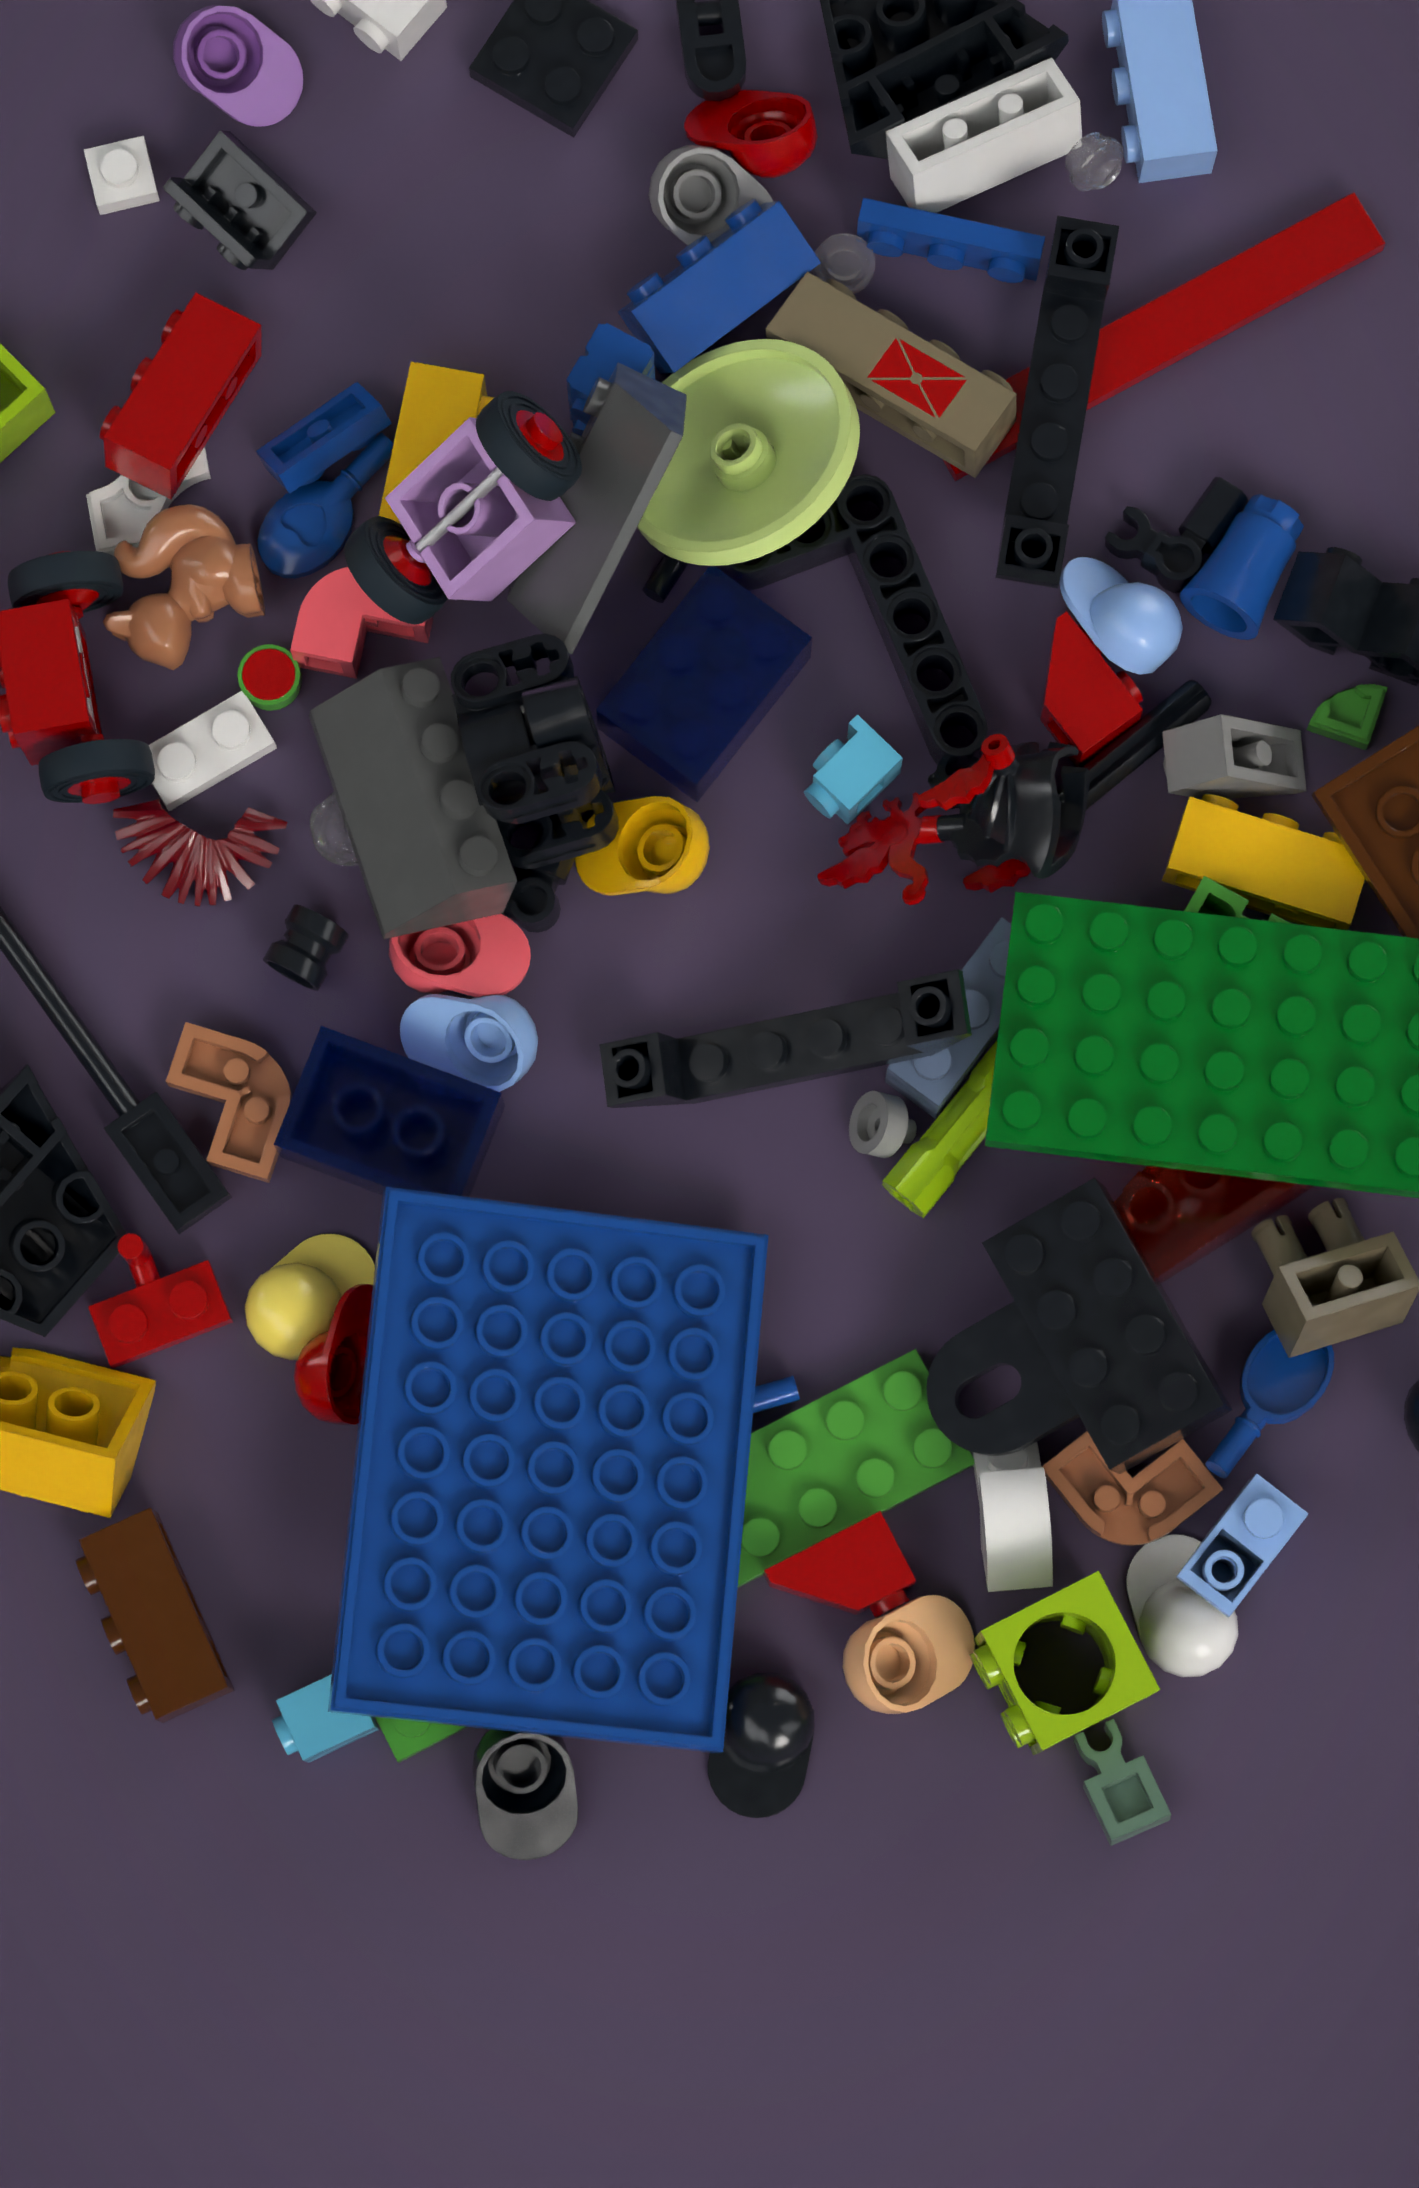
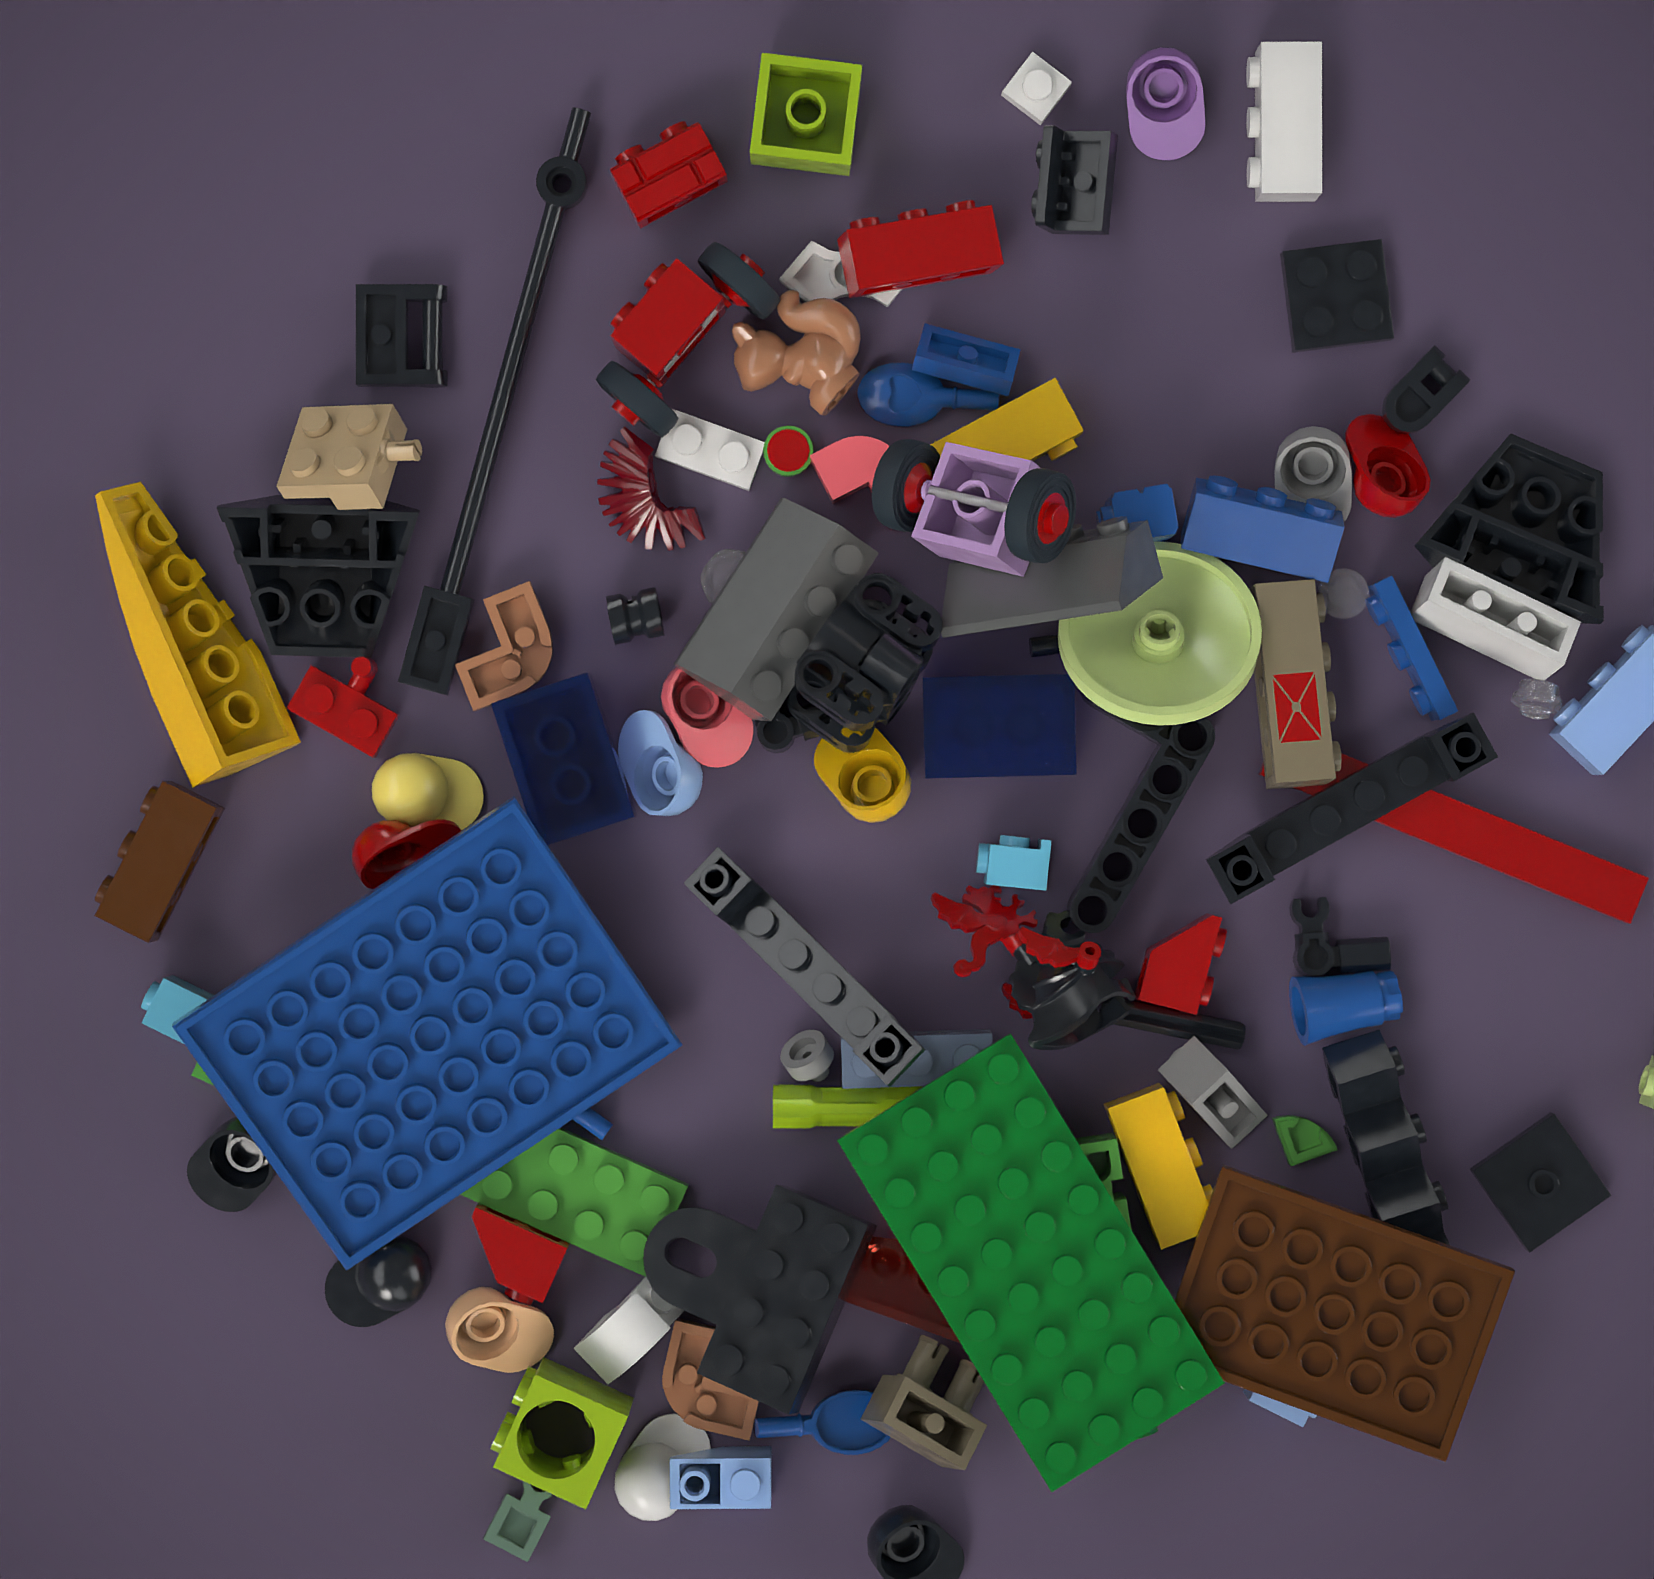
camera: 50 degrees right, 10 degrees up
(1127, 621) = (1247, 958): light blue cap -> none

